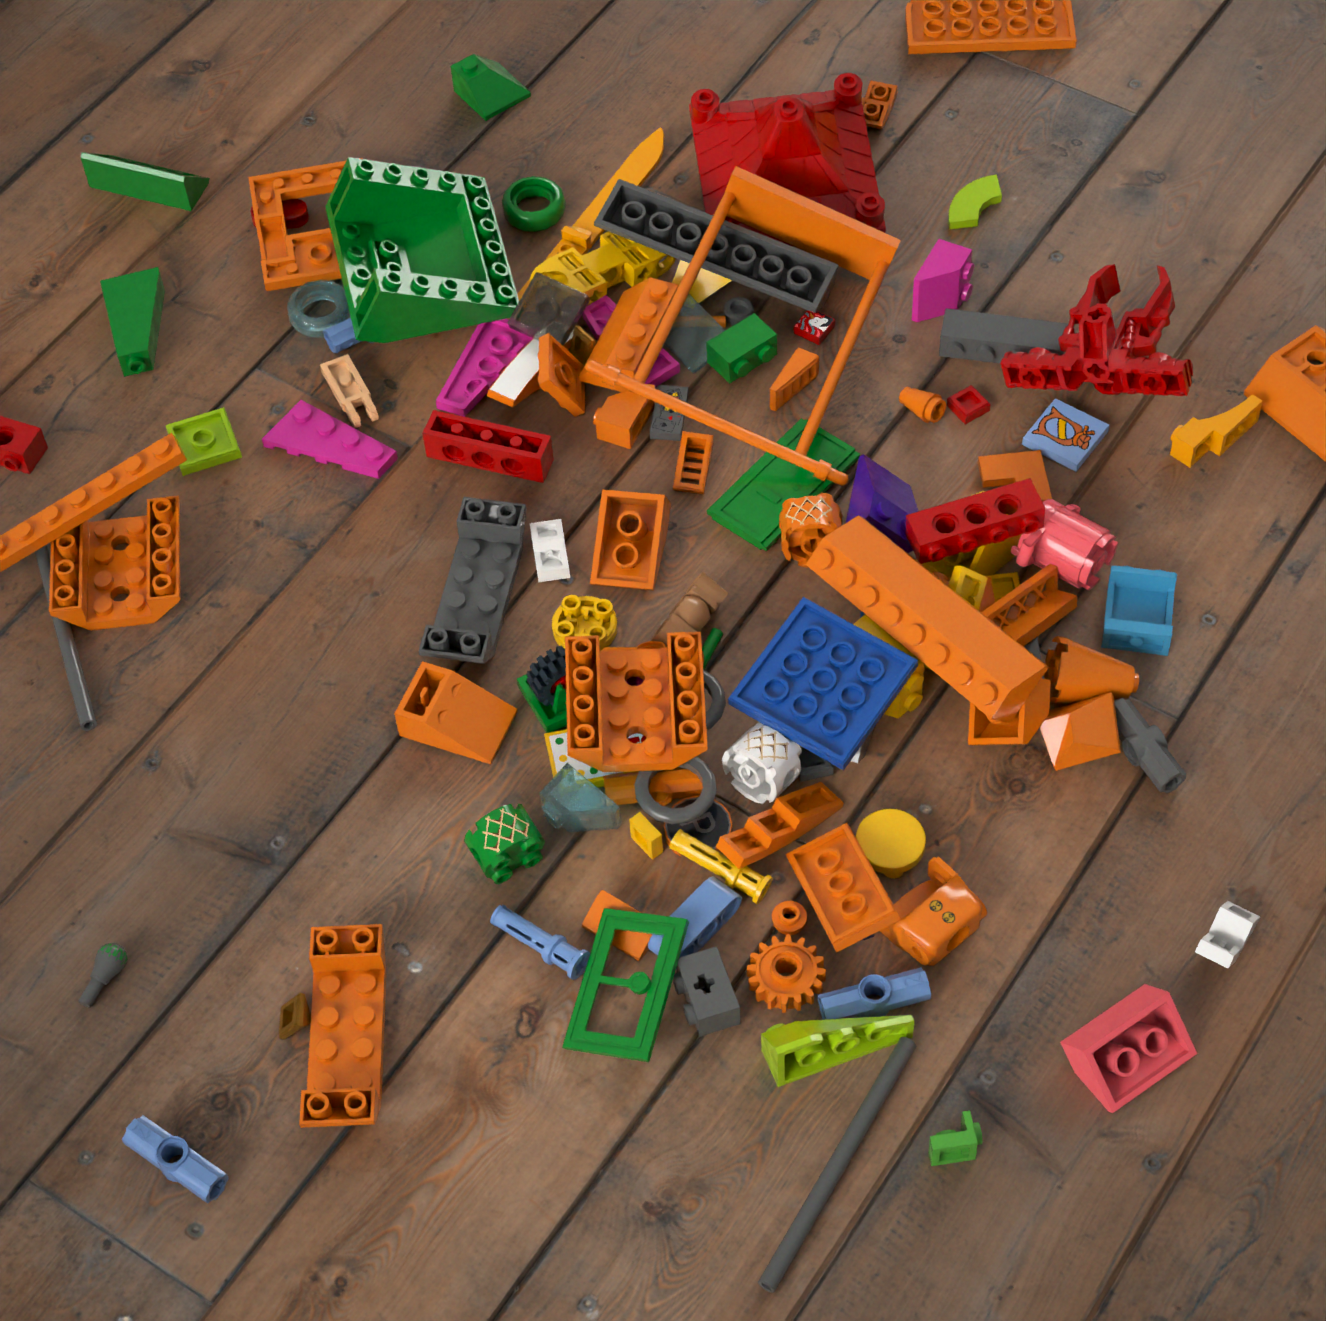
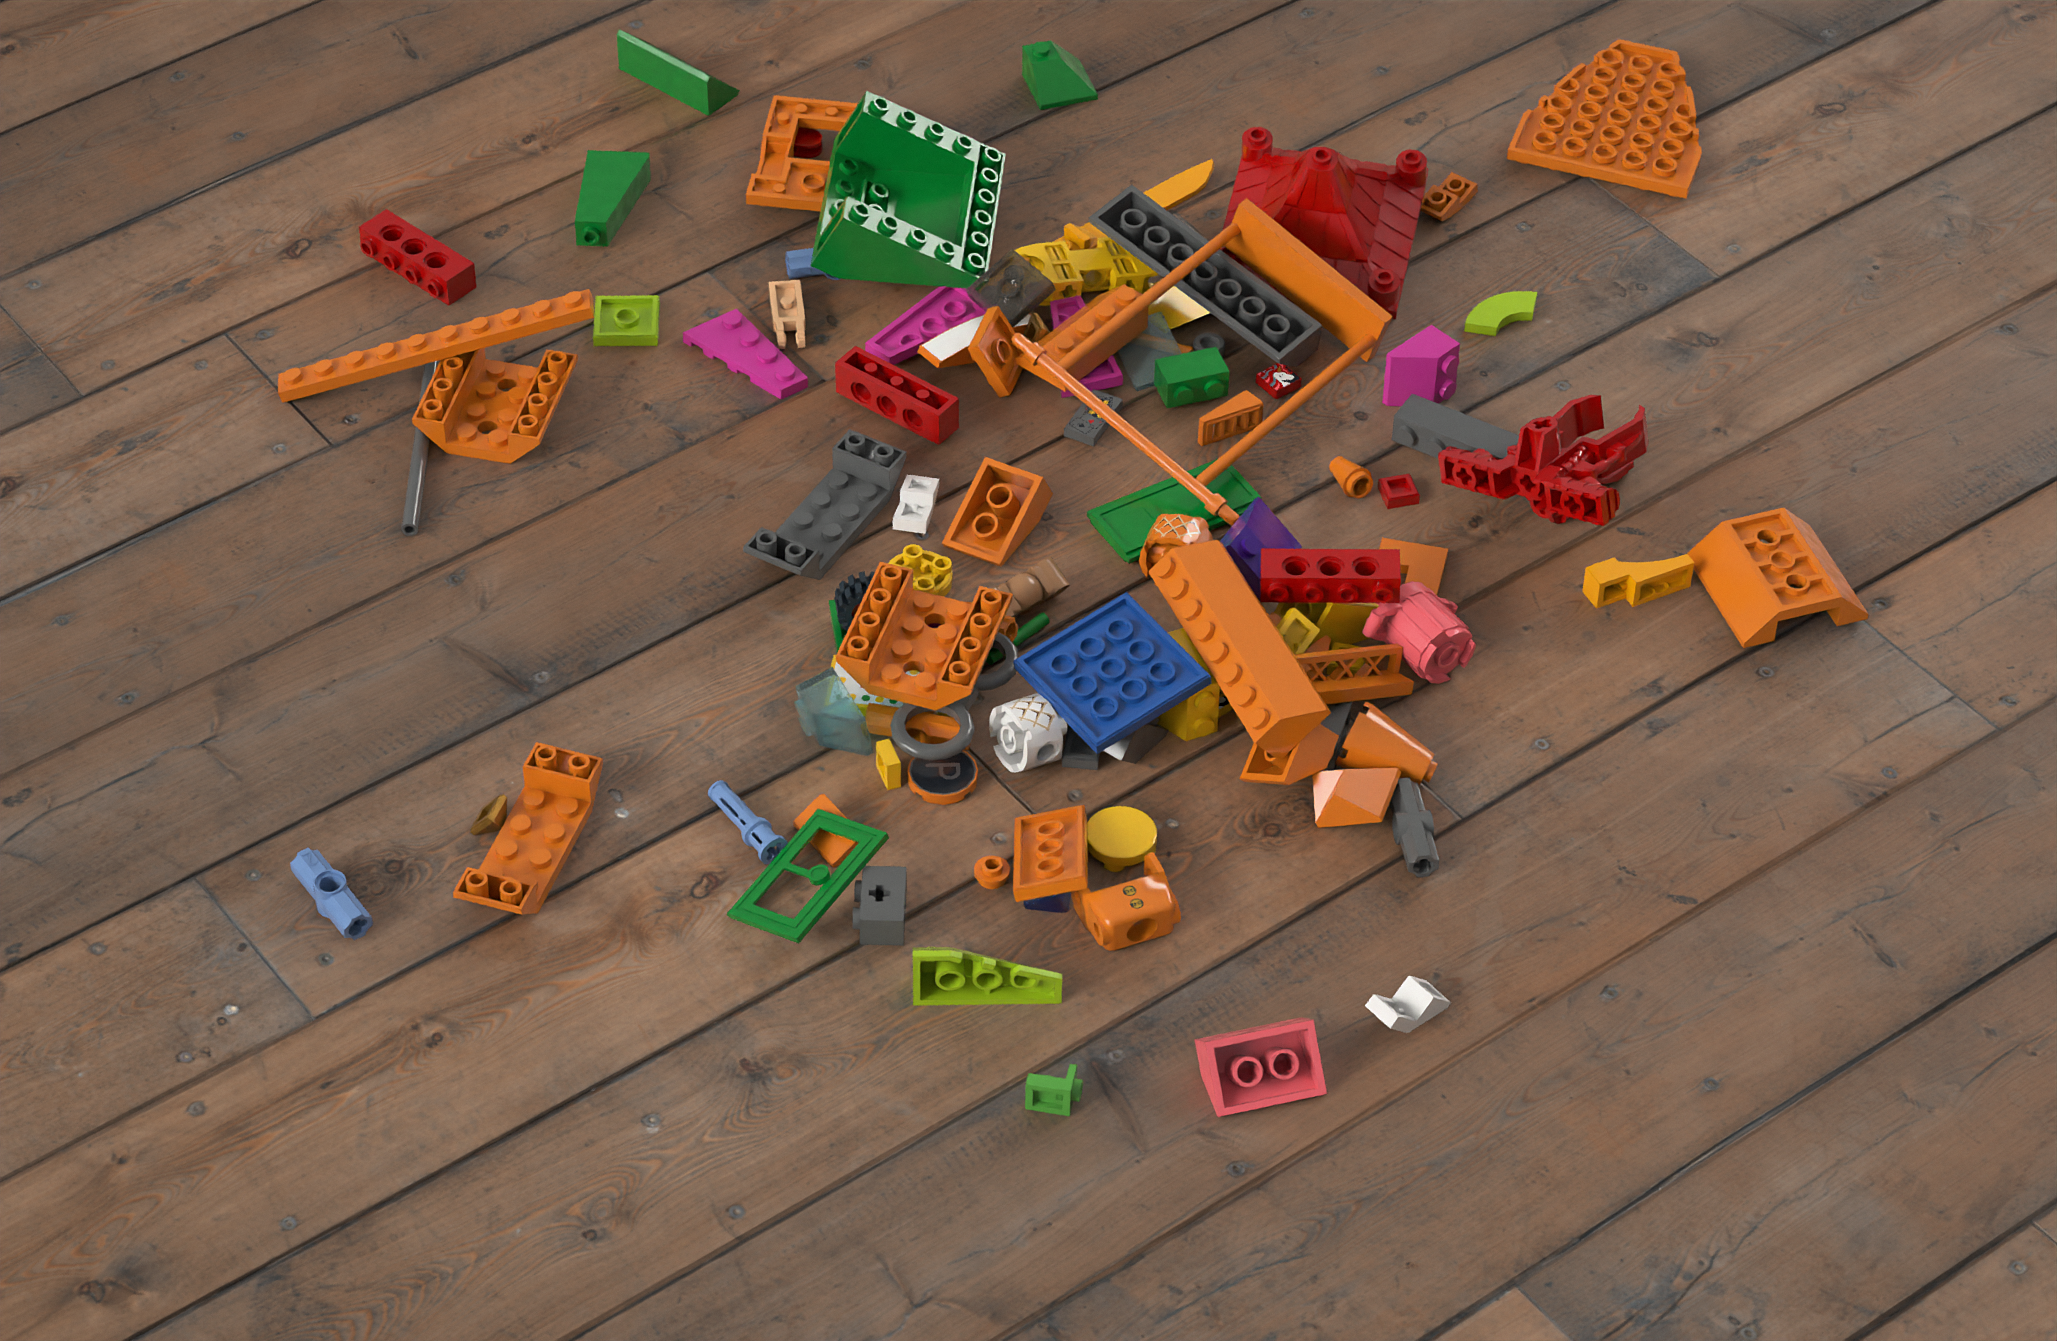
camera: 15 degrees right, 10 degrees down
(108, 963) = (341, 725): dark grey piece -> none
(313, 292) = (785, 218): clear light blue wheel -> none
(453, 714) = (753, 611): orange slope -> none
(505, 842) = (750, 728): green brick -> none
(536, 220) = (1049, 211): green wheel -> none
(622, 418) = (1044, 408): orange slope -> none
(699, 442) = (1097, 446): orange slope -> none
(707, 913) = (911, 842): medium blue beam -> none
(743, 879) = (956, 817): yellow pin -> none
(781, 825) = (1028, 790): orange slope -> none
(782, 957) = (964, 913): orange gear -> none
(836, 1165) = (936, 1078): dark grey piece -> none
(895, 990) = (1043, 952): medium blue piece -> none
(1065, 434) = (1483, 543): light blue tile -> none
(1139, 610) = (1472, 713): dark azure panel -> none

